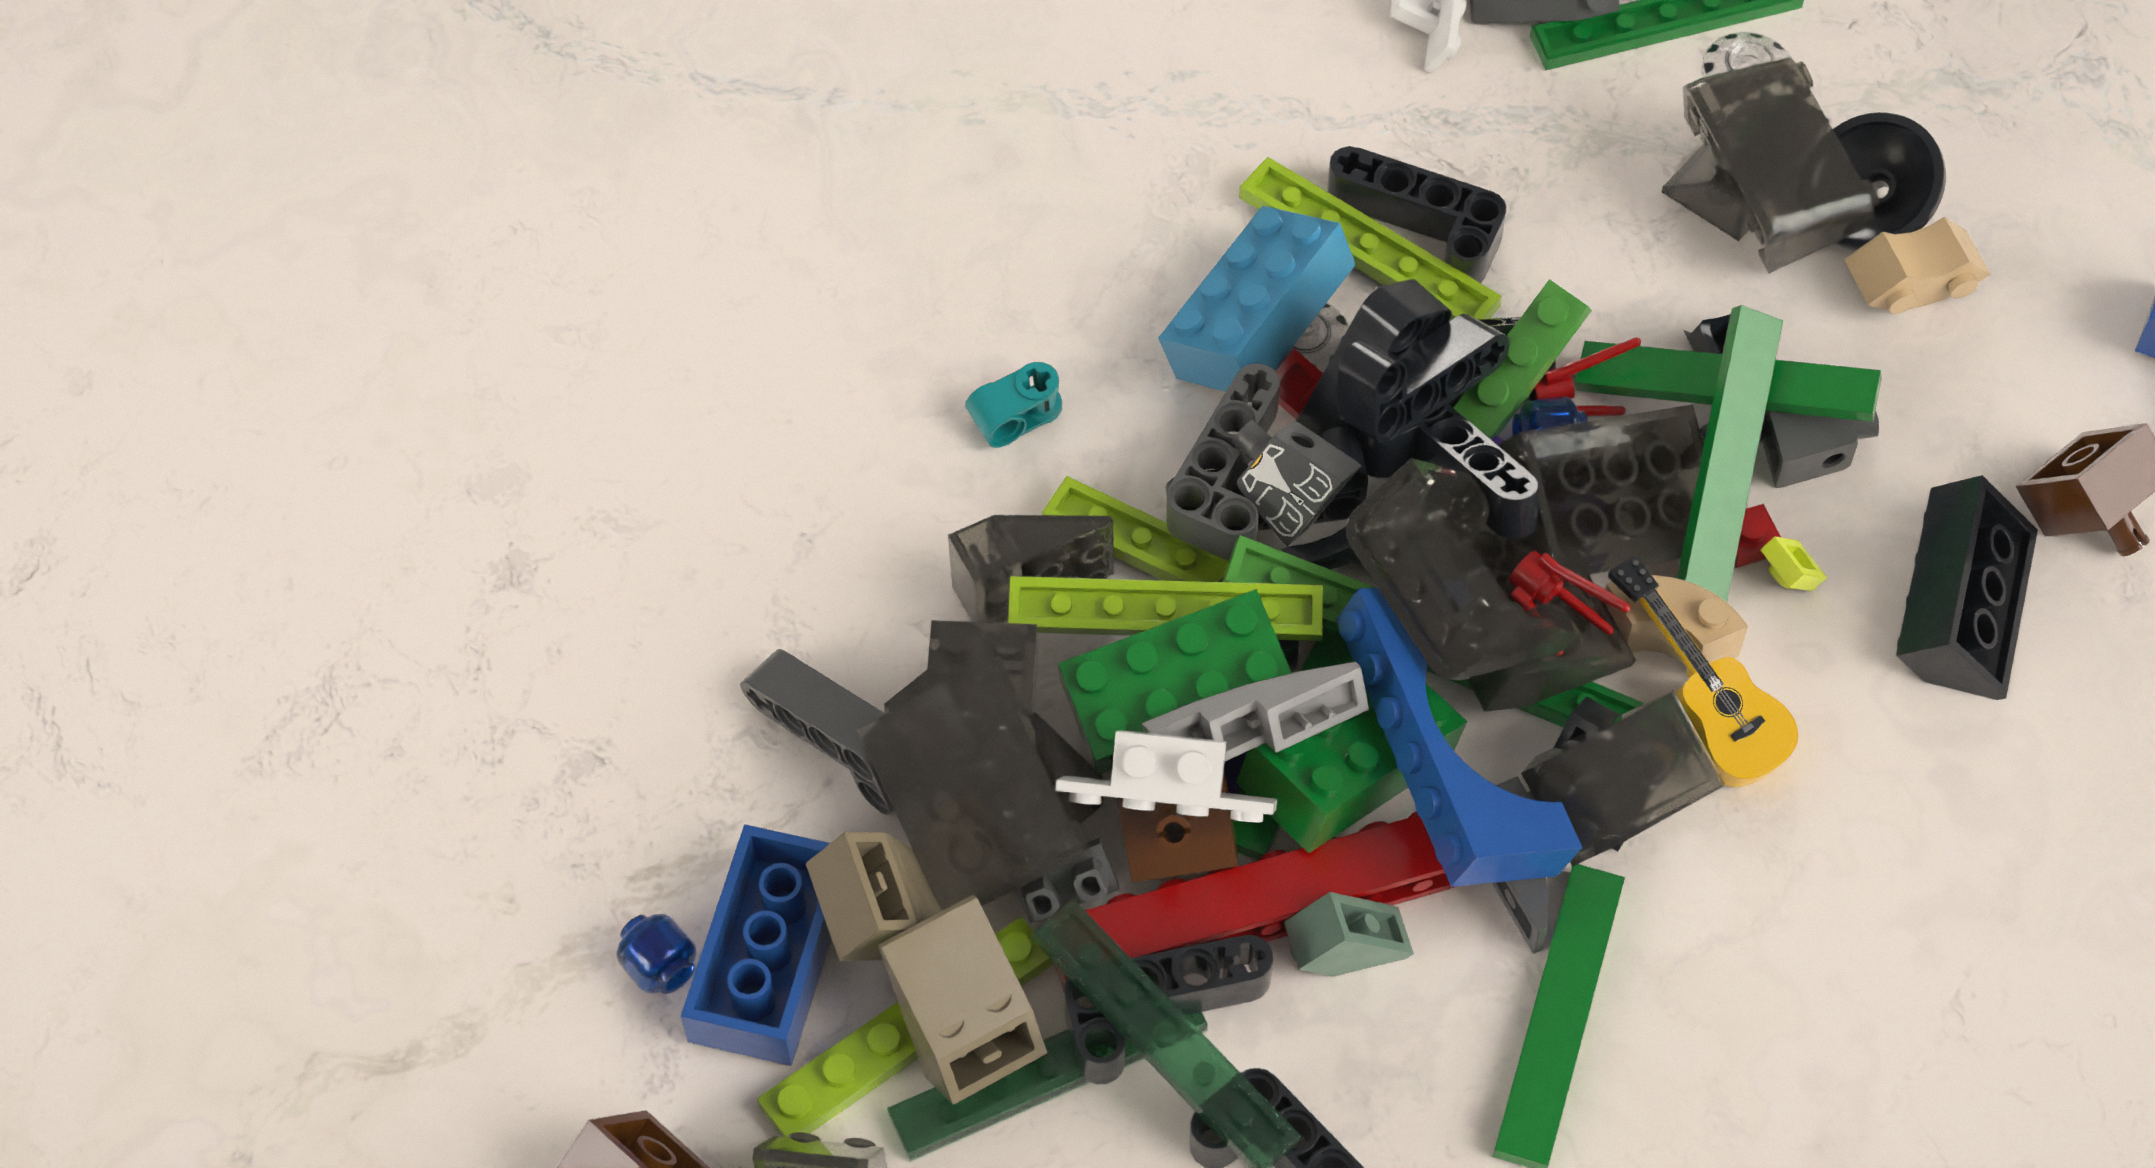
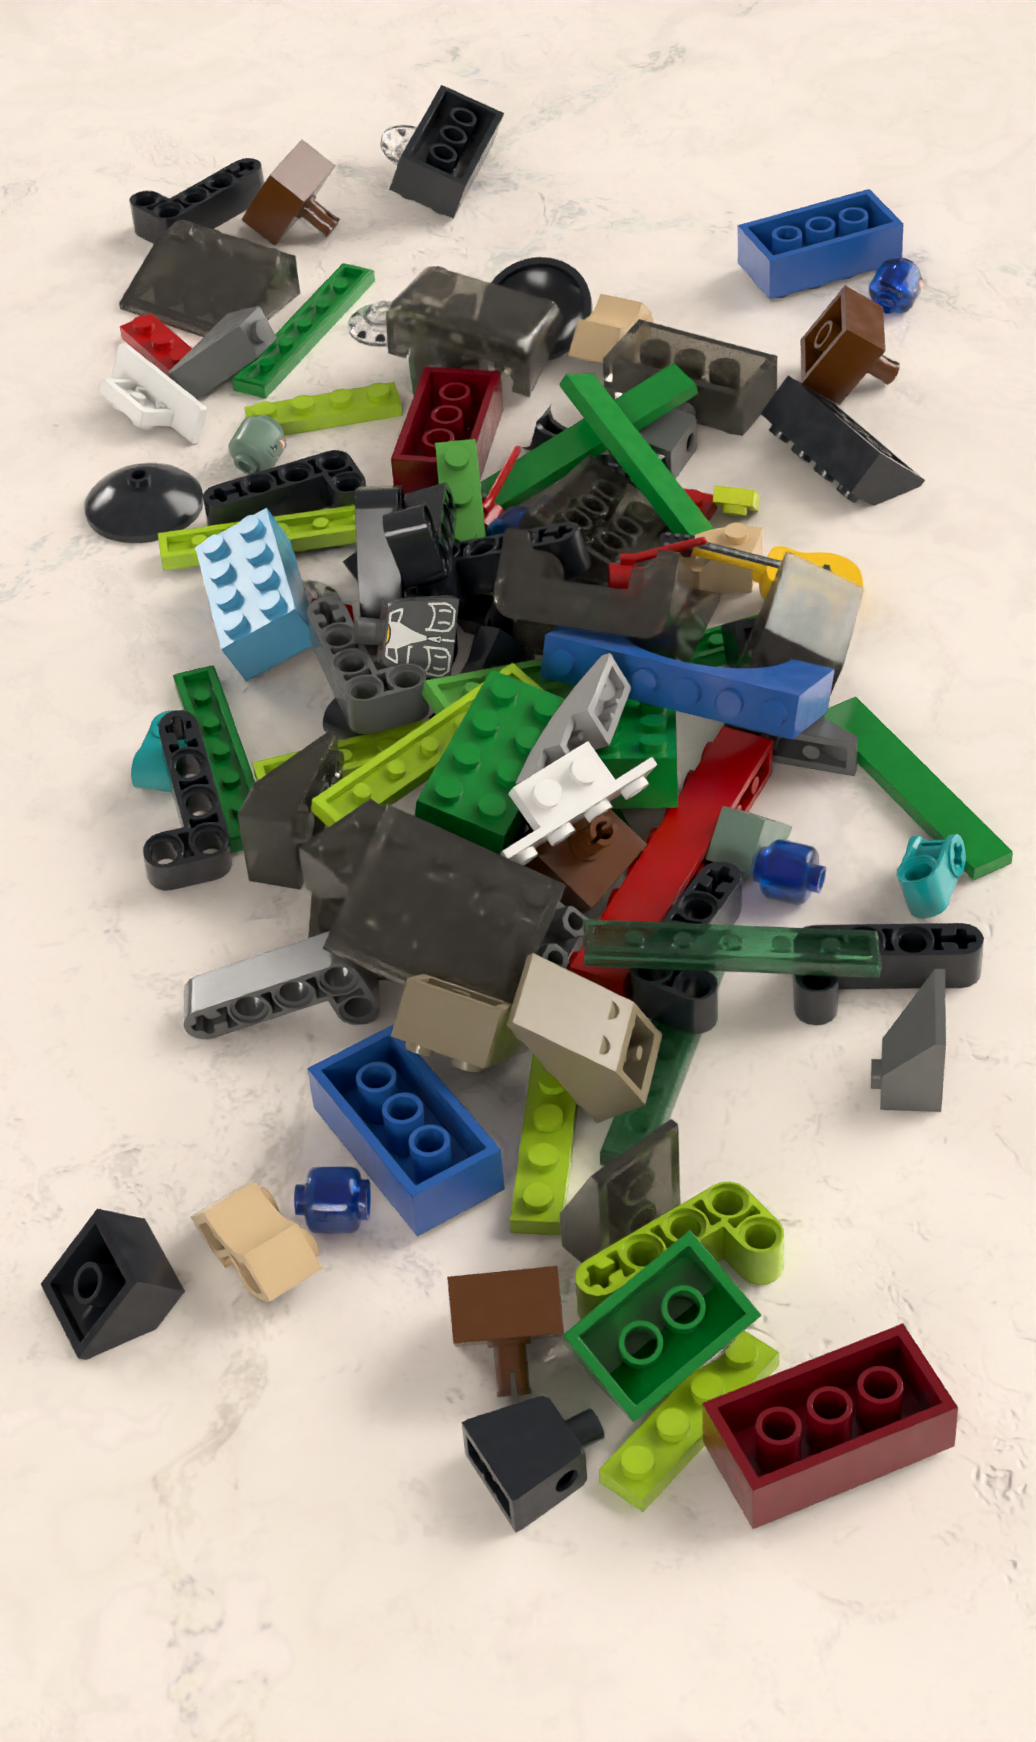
camera: 45 degrees left, 15 degrees down
(447, 868) = (111, 1284): none -> black slope
(569, 934) = (259, 1241): none -> tan brick
(962, 469) = (190, 795): none -> black beam
(1078, 422) = (205, 699): none -> green tile
(1308, 121) = (143, 501): none -> black dish
(1337, 1000) = (789, 871): none -> clear blue head
(1445, 1117) = (931, 873): none -> teal piece
(1459, 126) = (257, 444): none -> sand green head
(1570, 131) = (332, 409): none -> lime plate
(1630, 255) = (446, 408): none -> dark red brick
(1930, 398) = (729, 378): none -> clear smoke brick

